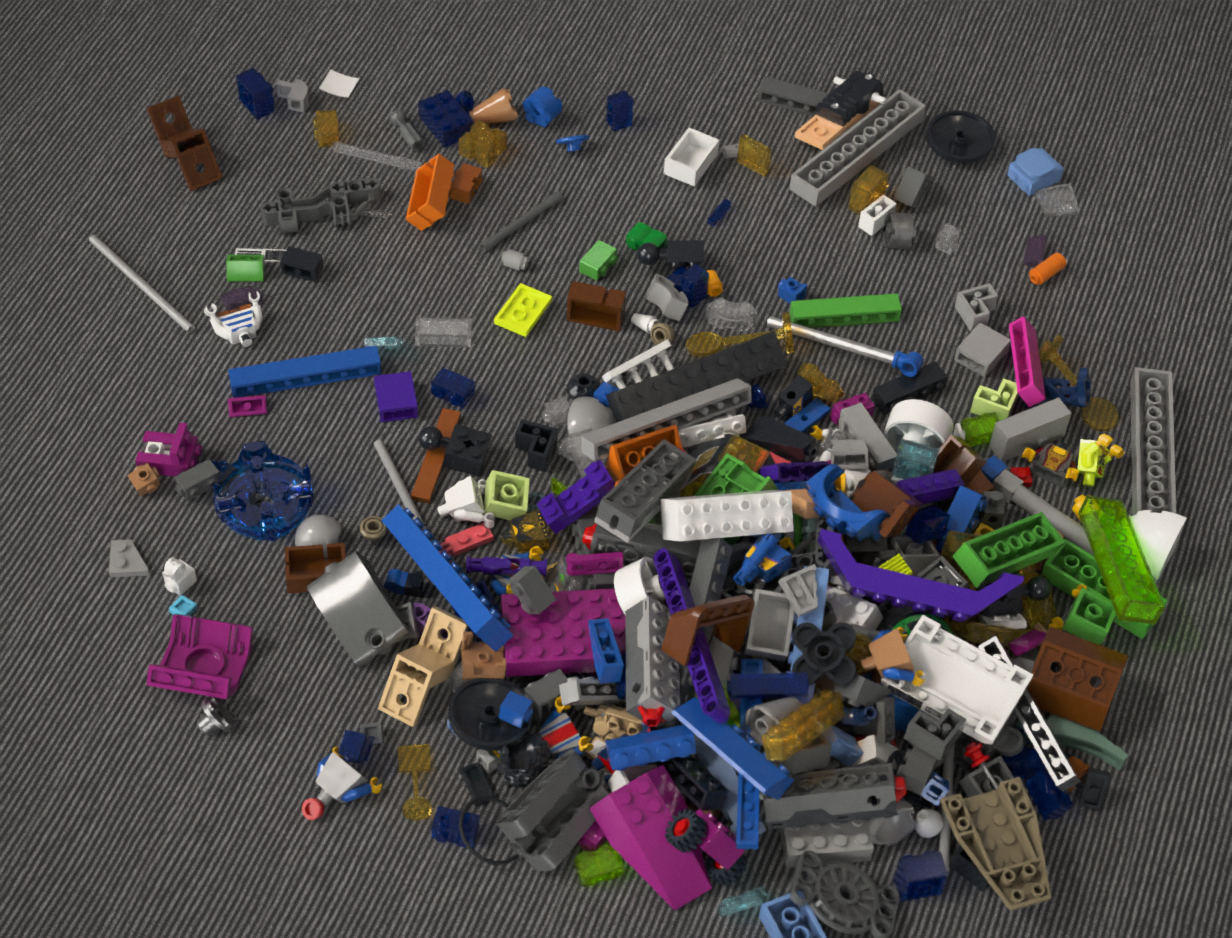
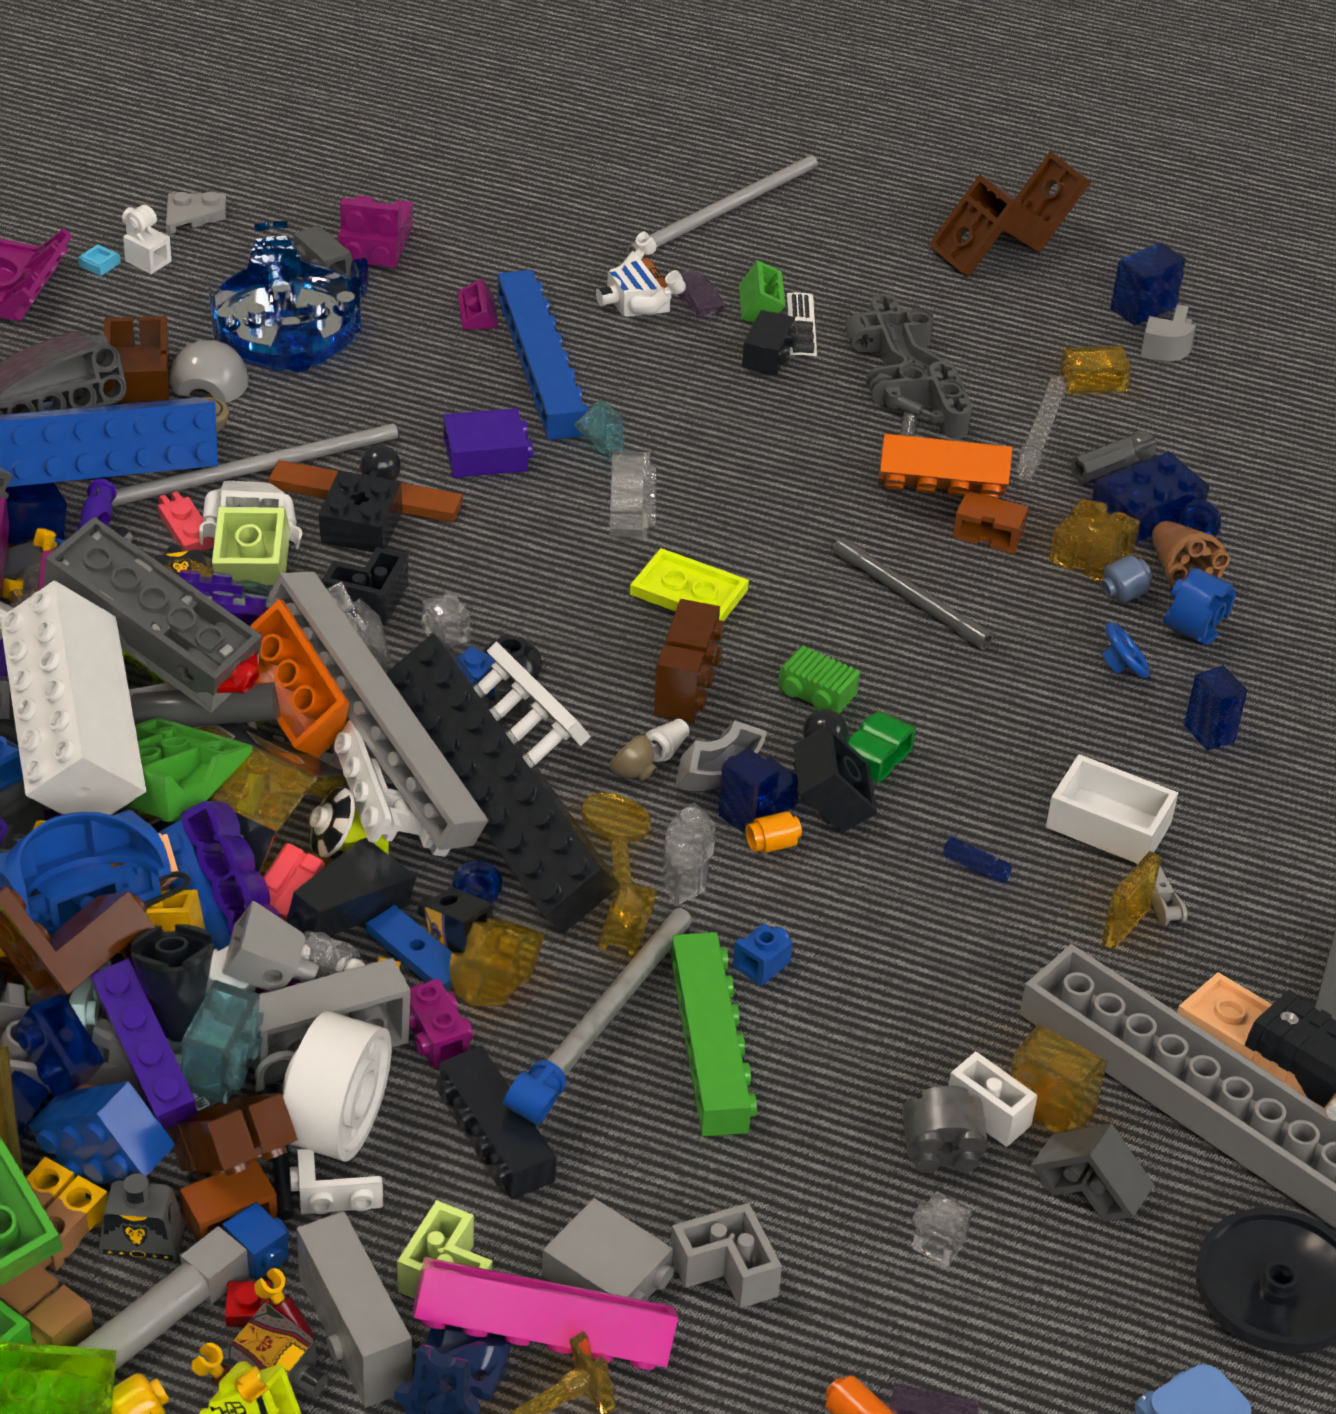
camera: 90 degrees right, 10 degrees down
(144, 479) = (324, 209): medium nougat brick -> none
(338, 84) = (1219, 389): white sticker -> none
(452, 387) = (498, 498): clear blue brick -> none
(514, 260) = (809, 578): light grey brick -> none
(515, 135) = (1126, 579): none -> sand blue head
(588, 413) = (406, 632): light grey brick -> none
(902, 459) = (174, 974): none -> black cone
(979, 429) = (379, 1229): clear neon green brick -> none

